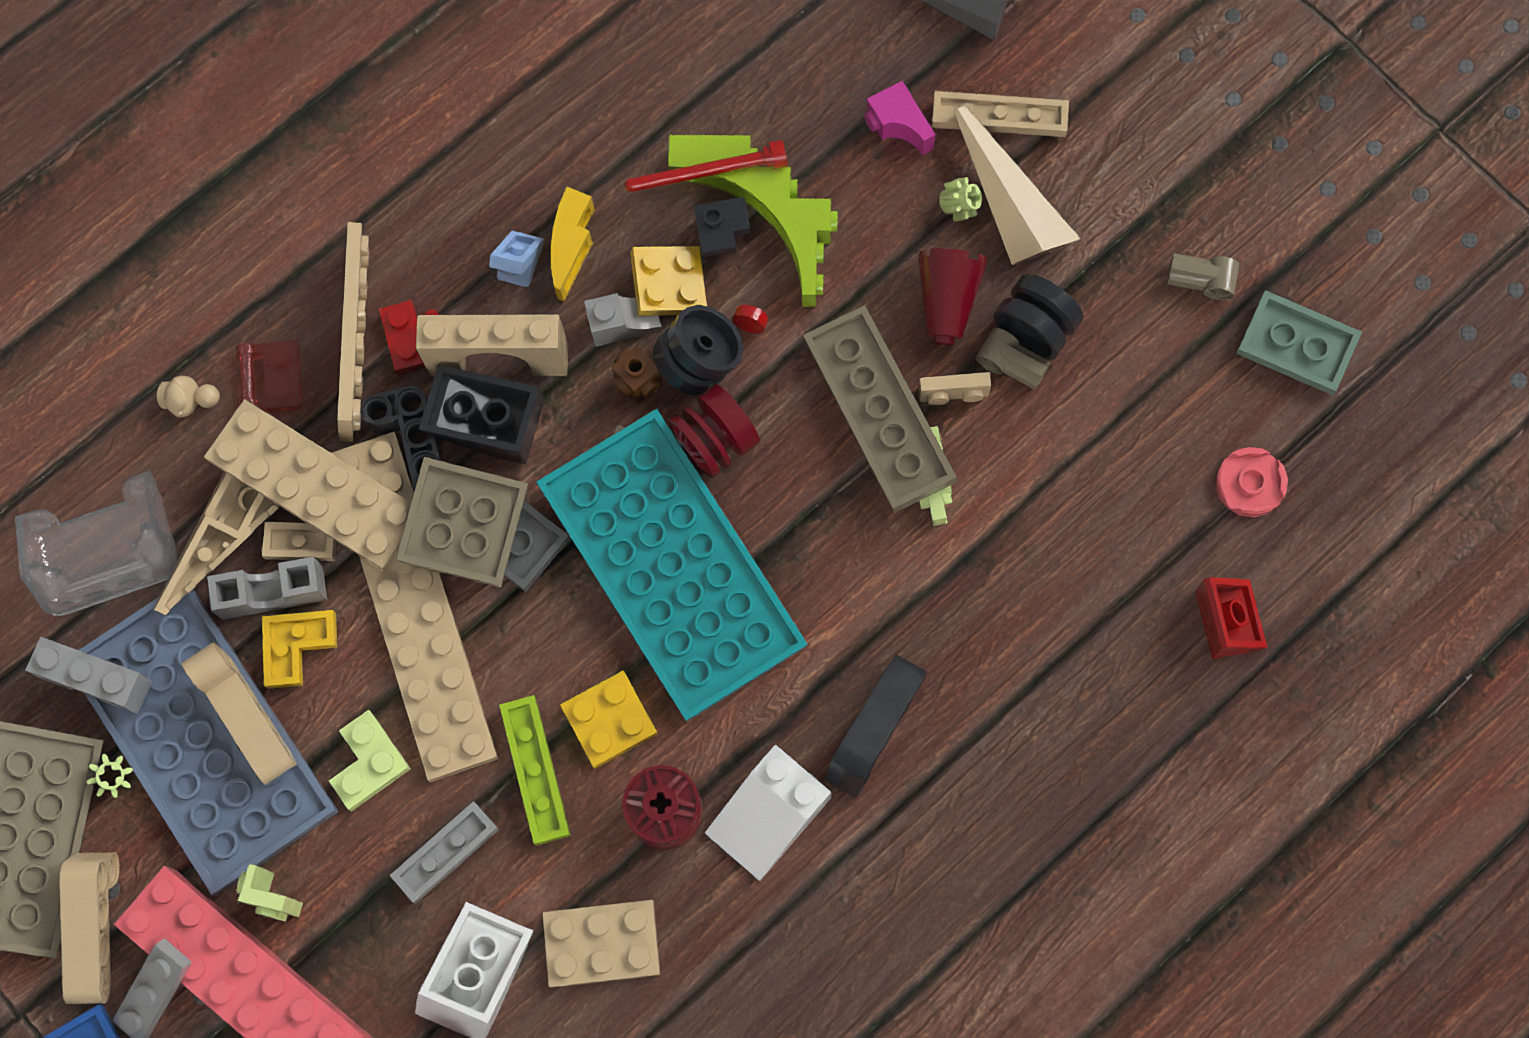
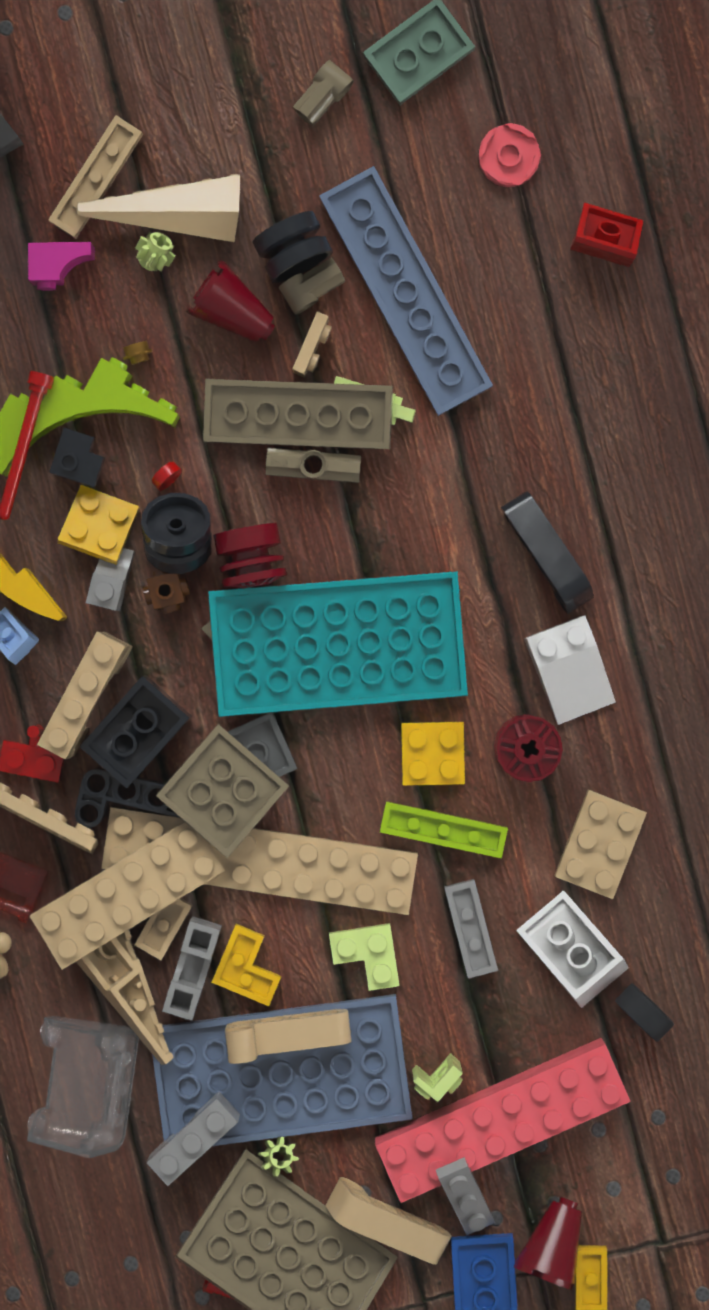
camera: 65 degrees left, 15 degrees up
(845, 468) = (334, 466): none -> dark tan piece
(855, 233) = (137, 352): none -> pearl gold plate
(1057, 452) = (405, 291): none -> sand blue plate

